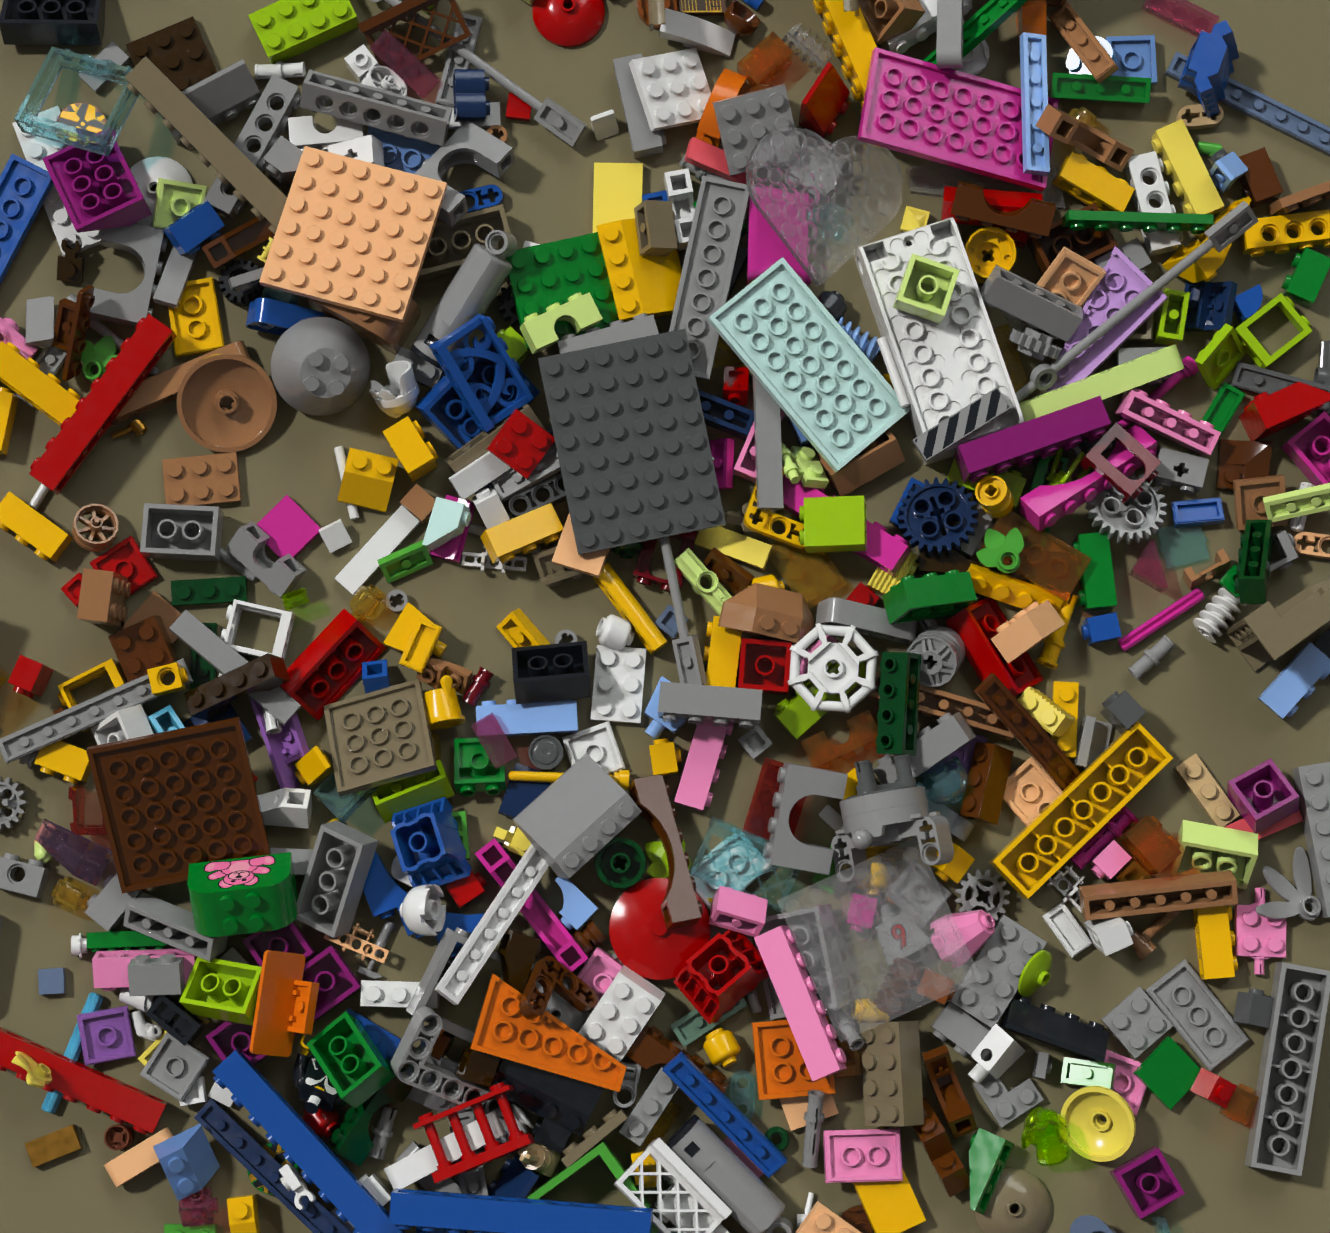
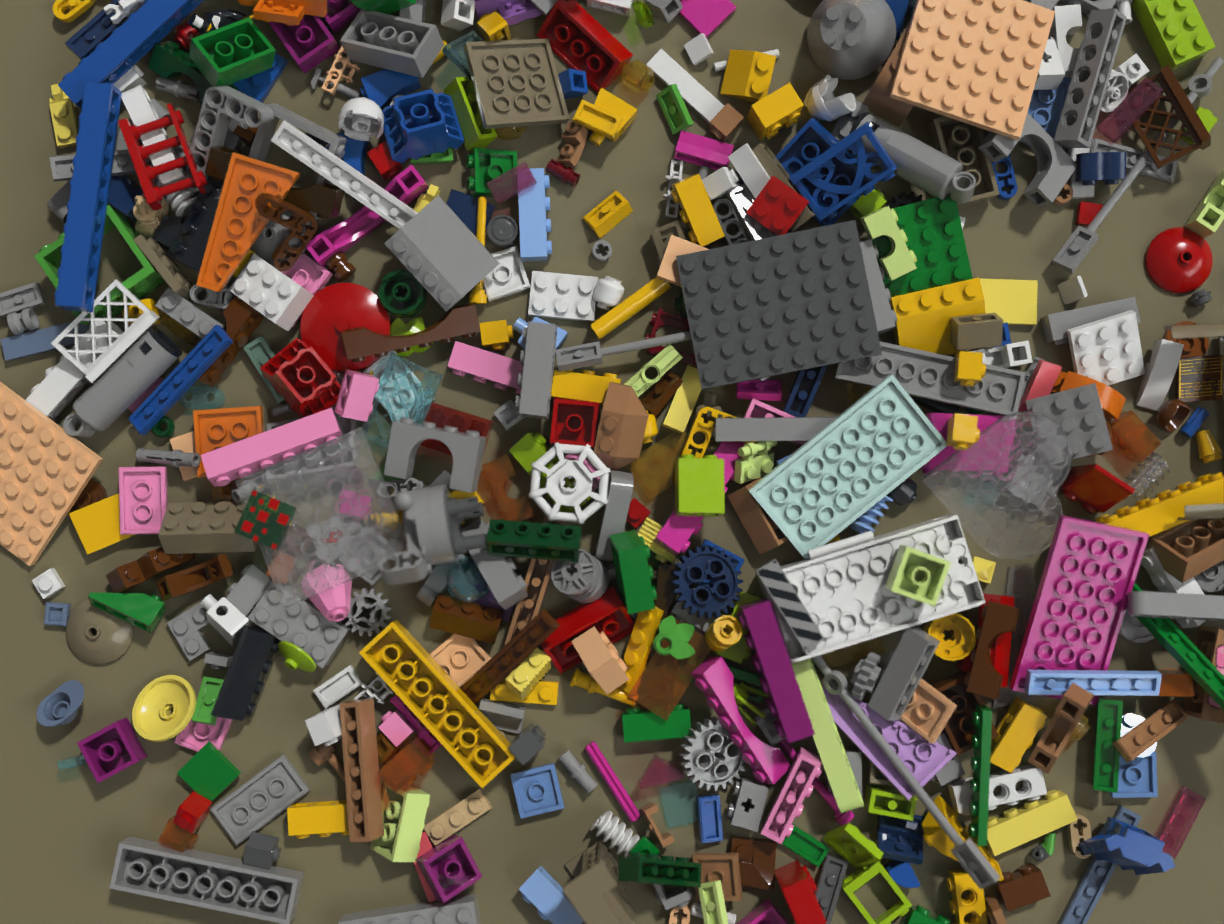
camera: 90 degrees right, 5 degrees up
(392, 994) = (296, 91): white brick -> none
(395, 593) = (640, 111): light grey bush -> none
(443, 706) = (545, 140): yellow hat -> none
(445, 522) = (707, 141): light aqua slope -> none
(551, 672) = (571, 233): black brick -> none
(576, 907) = (368, 255): light blue arch -> none
(667, 622) = (617, 338): sand blue tile -> none
(700, 235) = (969, 368): none -> yellow brick
(721, 1047) = (241, 380): yellow head -> none
(736, 385) = (829, 403): red bracket -> none
(769, 242) = (962, 431): none -> yellow brick
(800, 1217) = (95, 448): white hand -> none
(884, 1001) = (265, 520): none -> clear green tile
(956, 868) = (397, 593): yellow brick -> none
(1049, 1134) = (155, 666): clear neon green helmet -> none
(1101, 628) = (604, 727): blue brick -> none
(1128, 487) = (731, 754): panel -> none
(1136, 1022) = (255, 745): light grey plate -> none
(1174, 702) = (537, 790): none -> medium blue plate
(1226, 171) = (1027, 859): light blue slope -> none
(1256, 935) = (331, 859): bright pink plate -> none
(1296, 897) = (360, 893): light grey plant -> none

